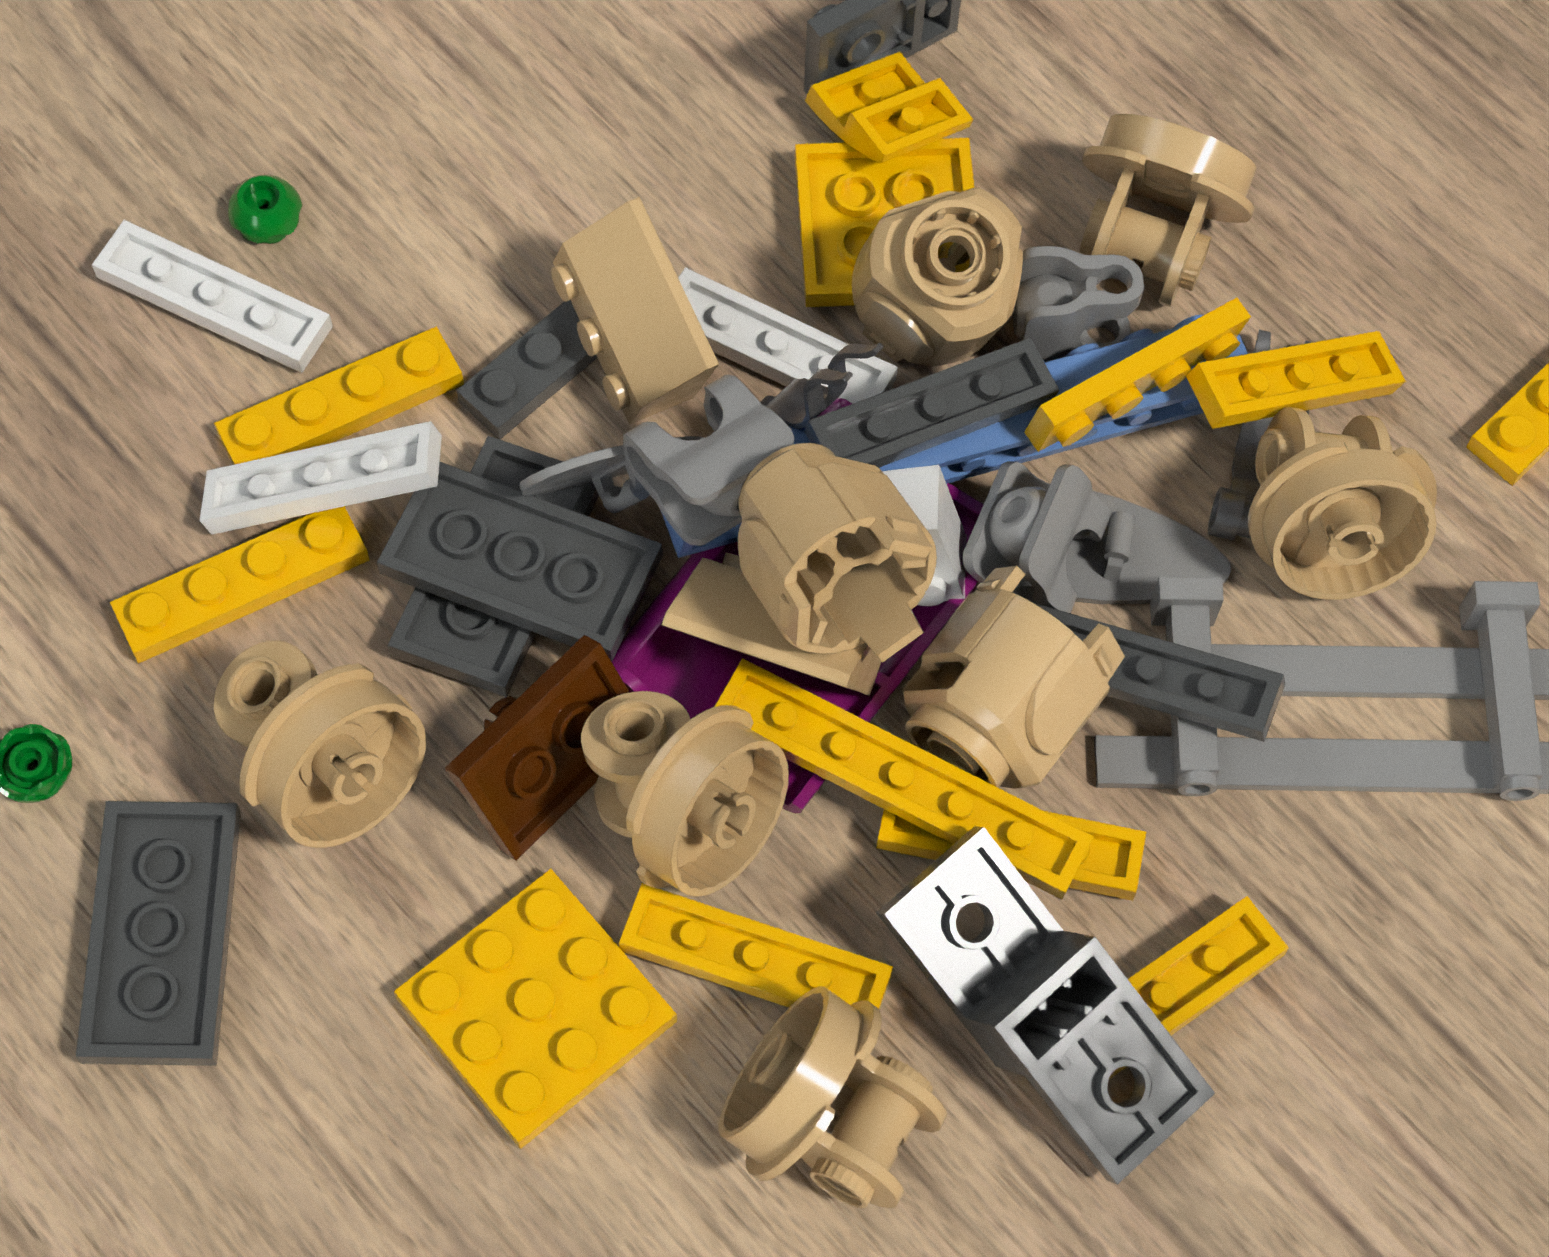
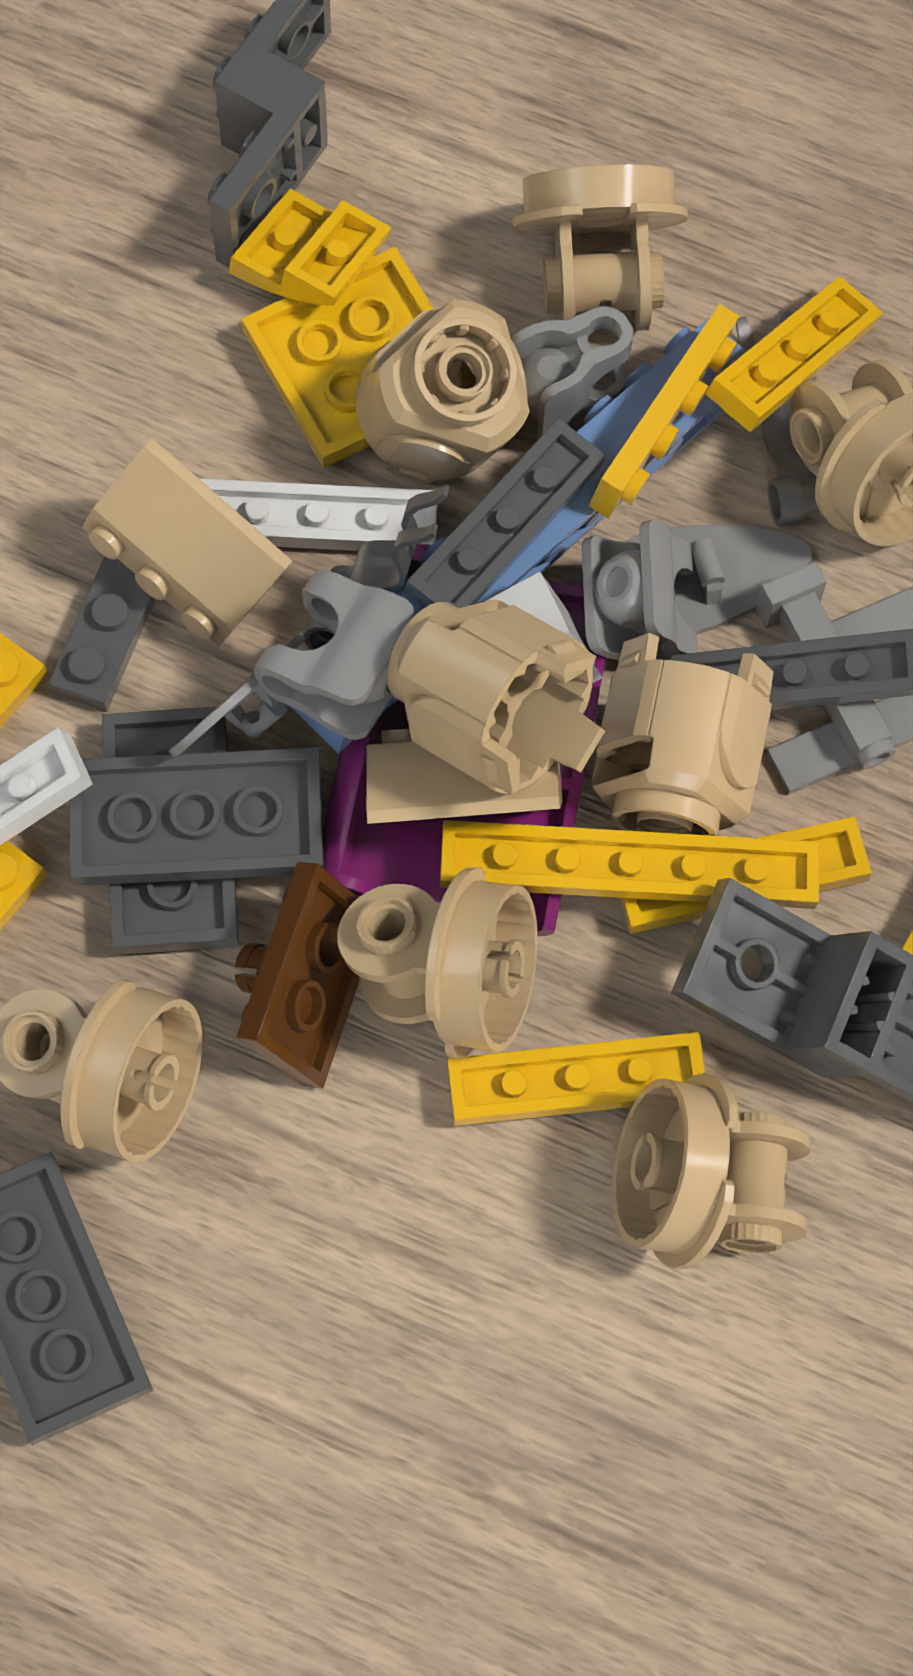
camera: 25 degrees left, 5 degrees up
(535, 1007) = (406, 1209): yellow plate -> none

